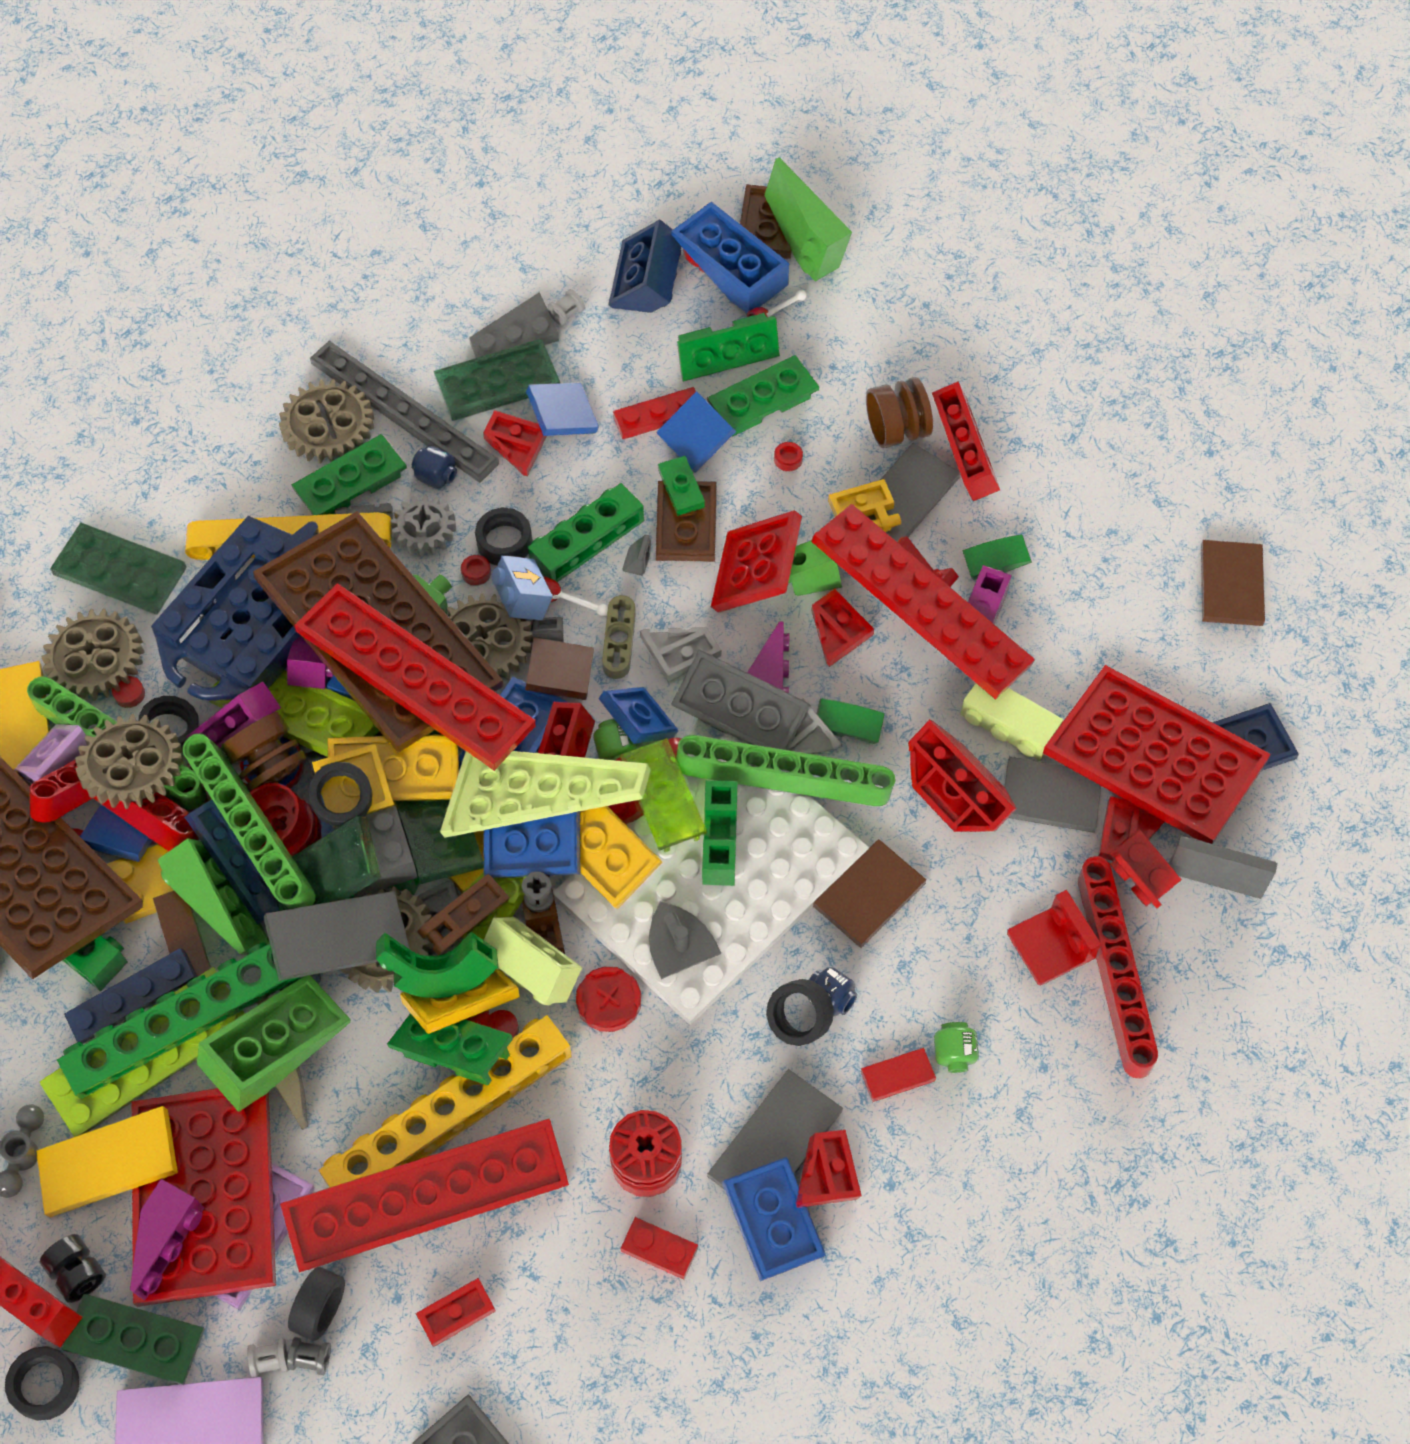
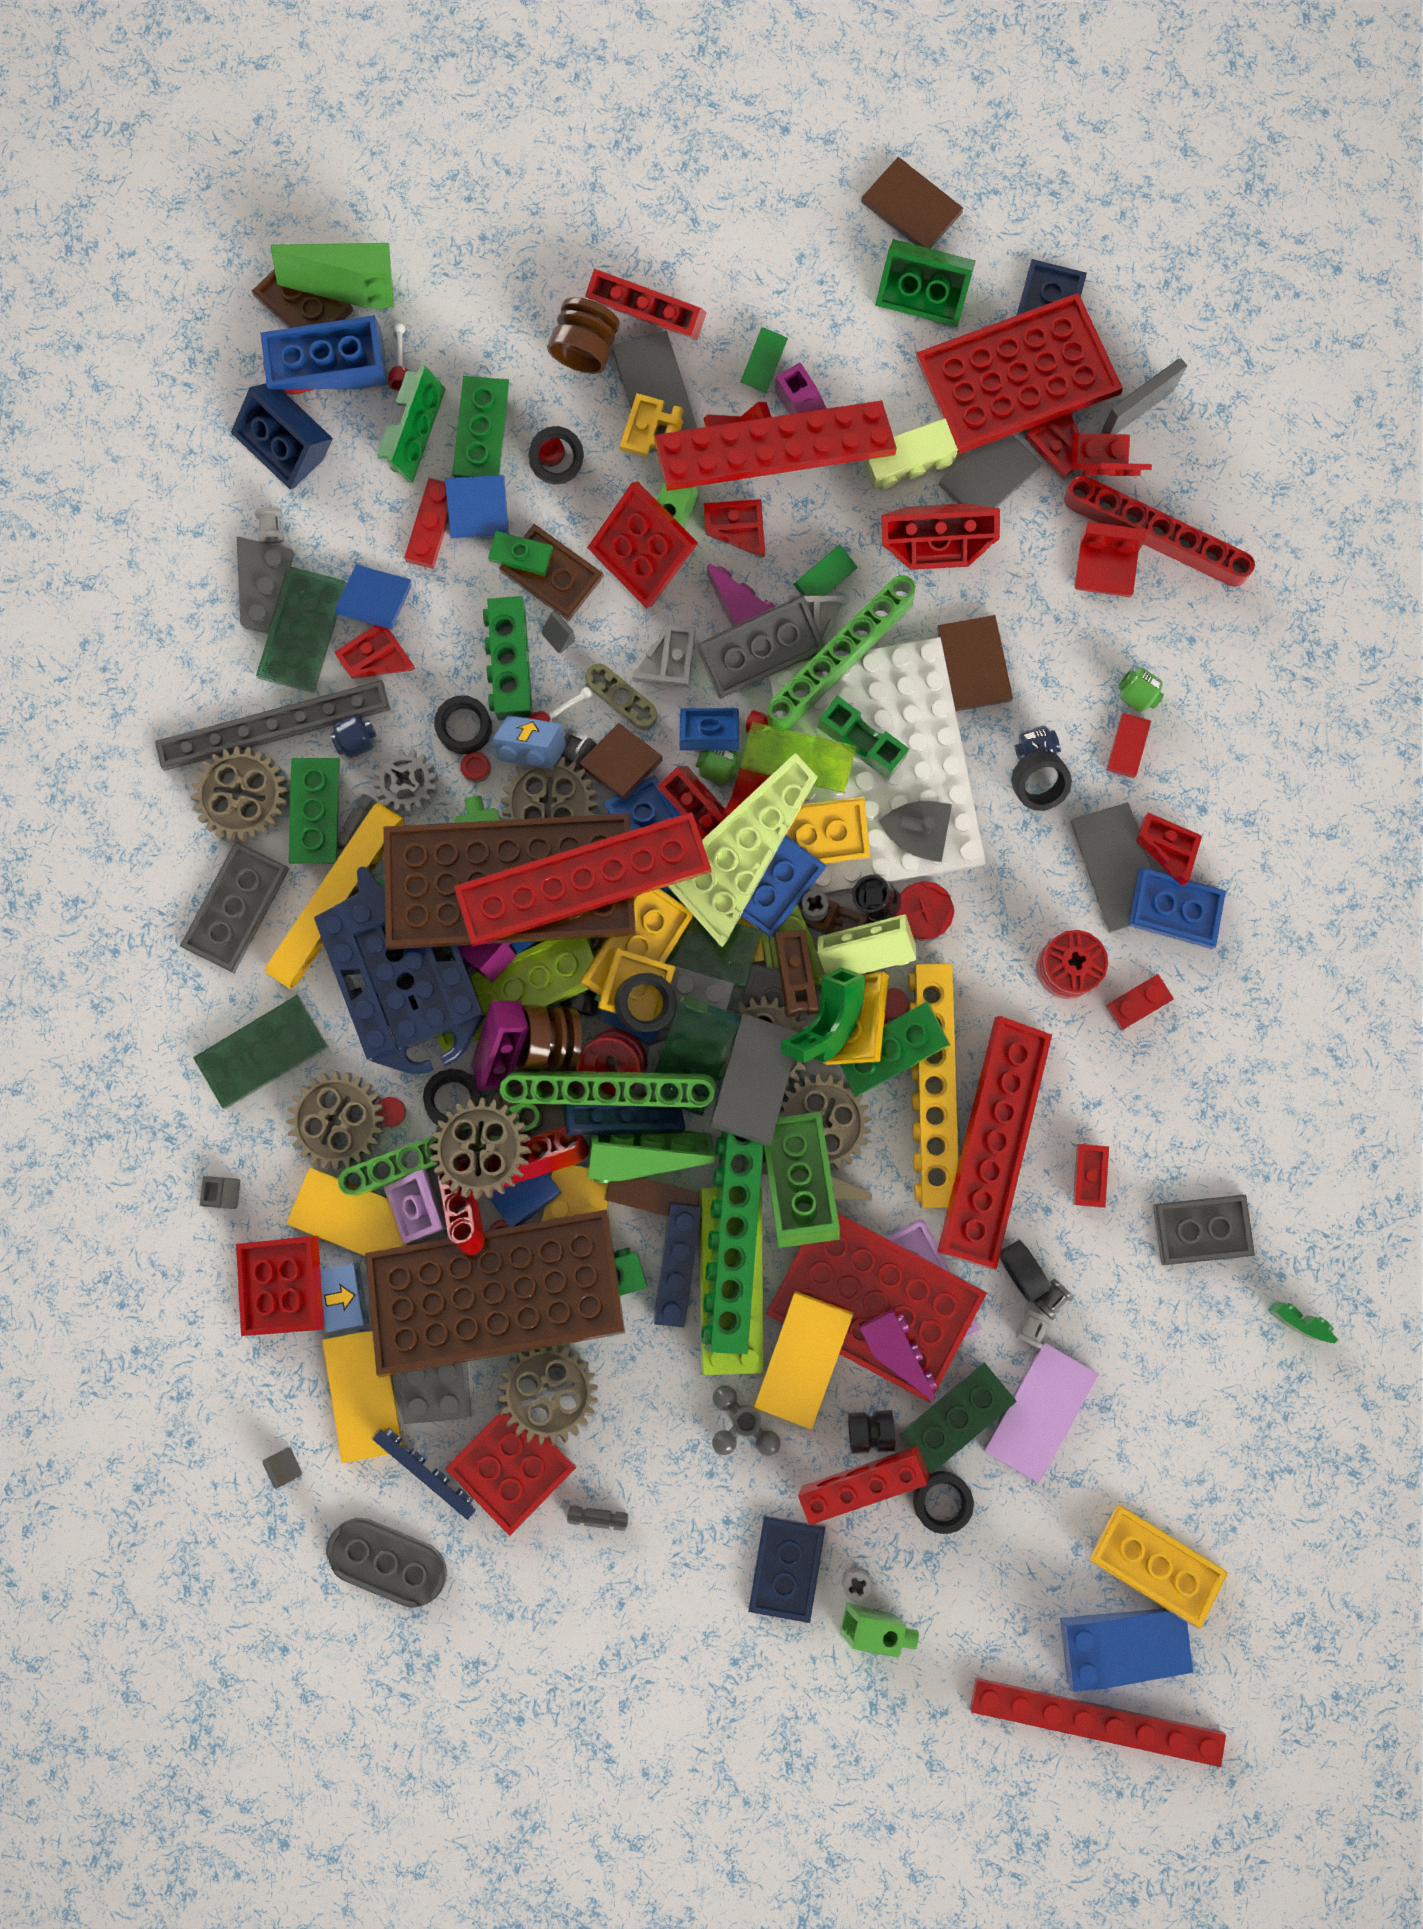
camera: 50 degrees left, 20 degrees up
(230, 476) = (234, 907): none -> dark grey tile
(348, 1064) = (846, 1135): none -> dark tan gear
(586, 942) = (876, 897): none -> black wheel
(785, 437) = (577, 449): none -> black tyre
(1172, 632) = (925, 282): none -> green slope

